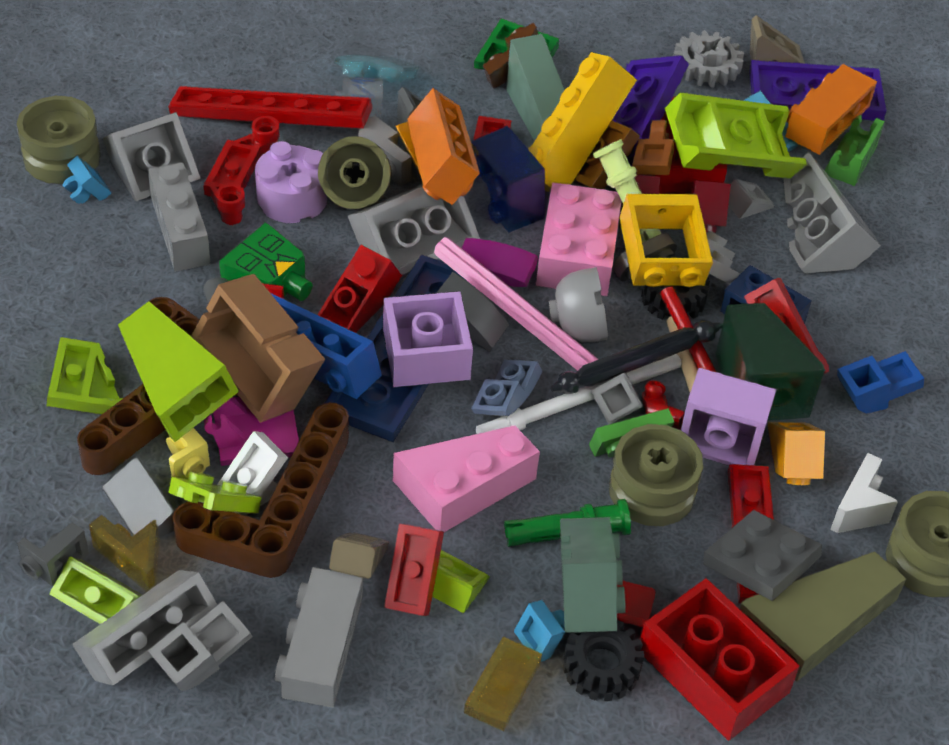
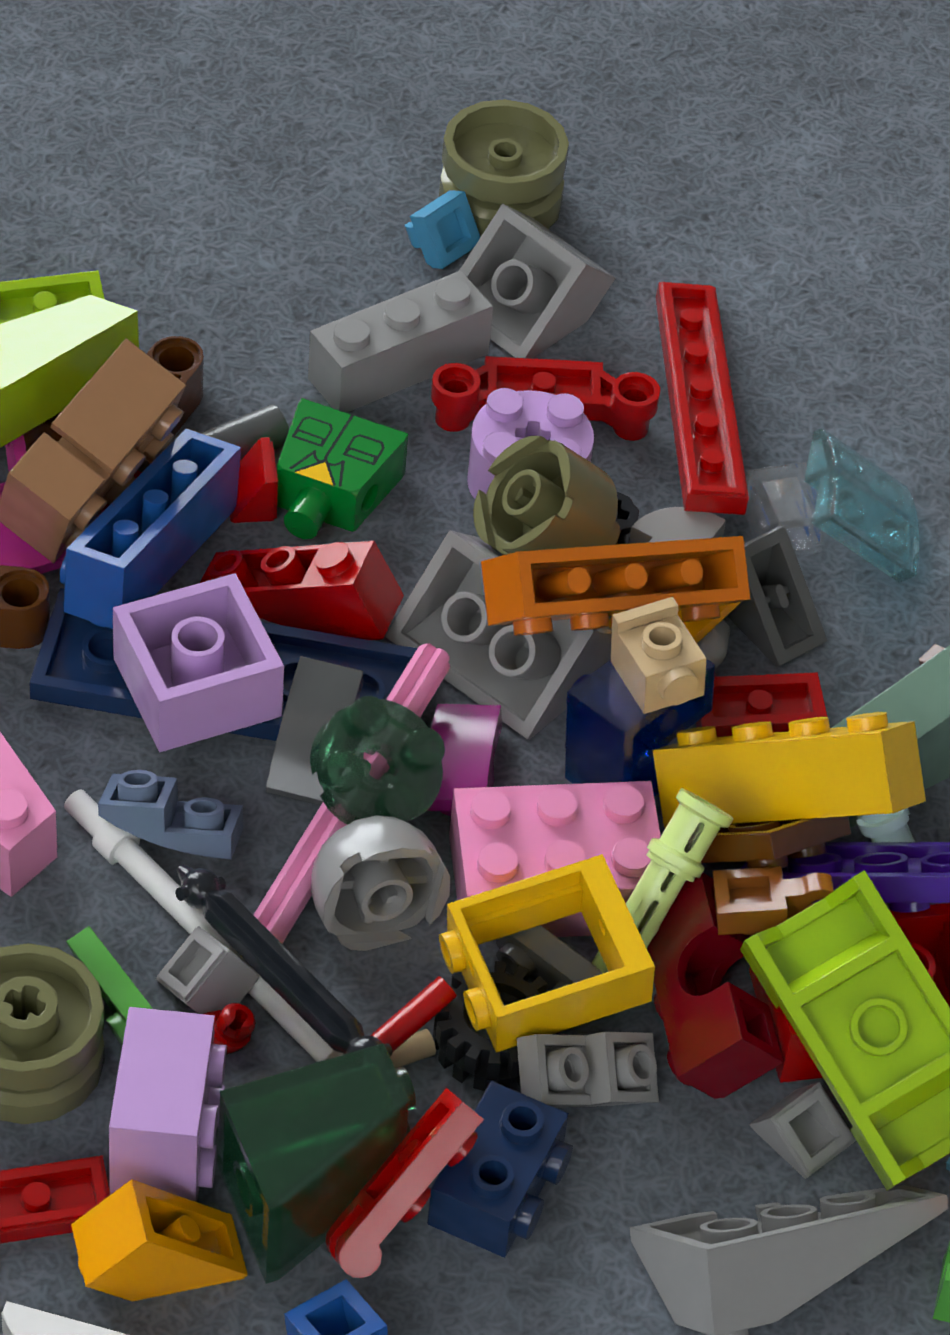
camera: 75 degrees right, 0 degrees up
(511, 138) = (657, 656): none -> tan brick
(516, 283) = (396, 734): none -> clear green plate

